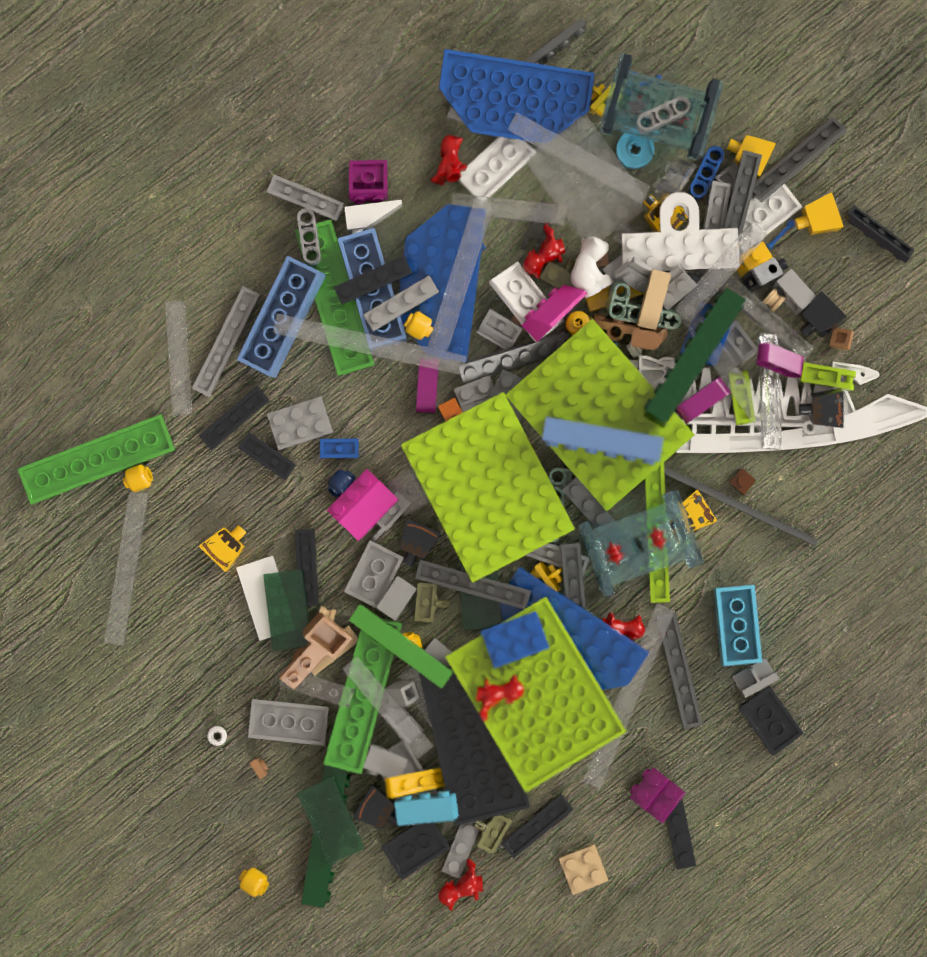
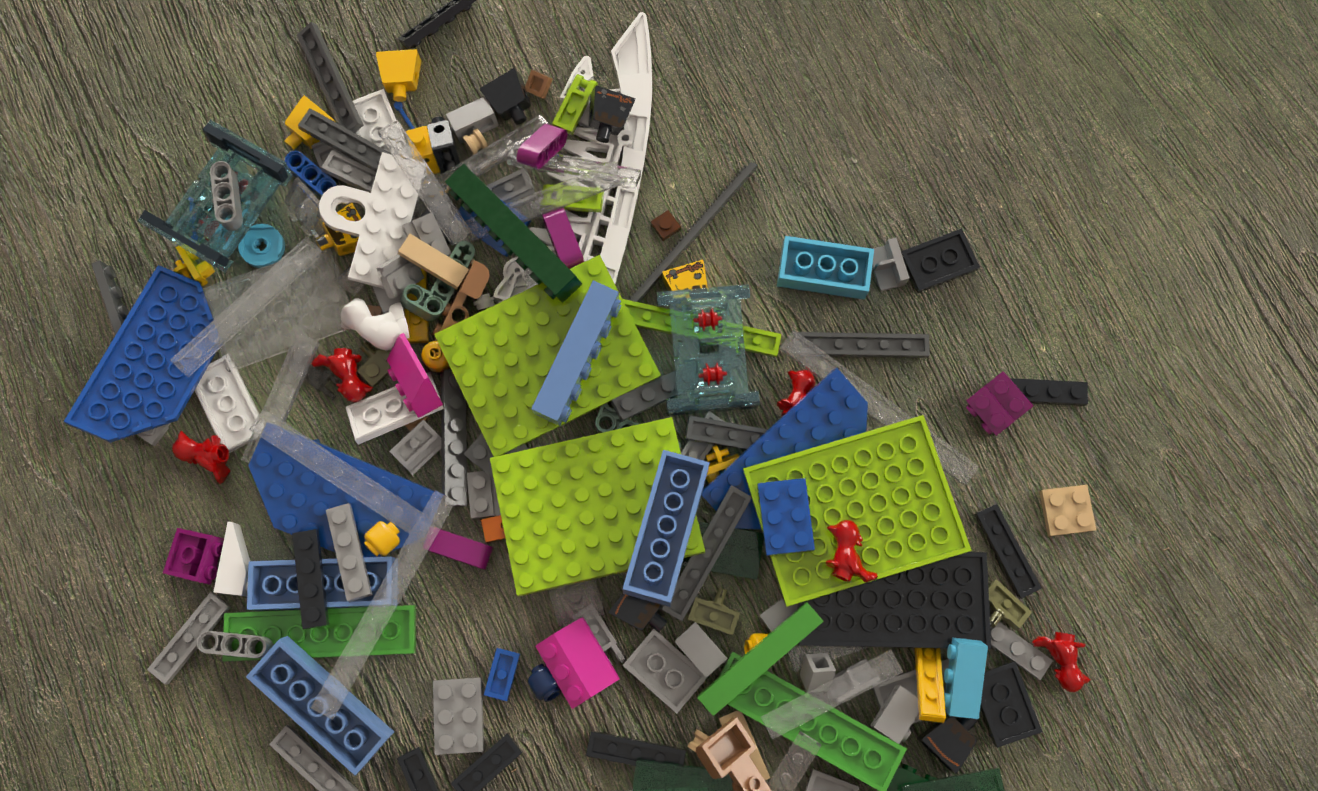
camera: 75 degrees left, 10 degrees down
(481, 547) = (666, 528): none -> medium blue brick

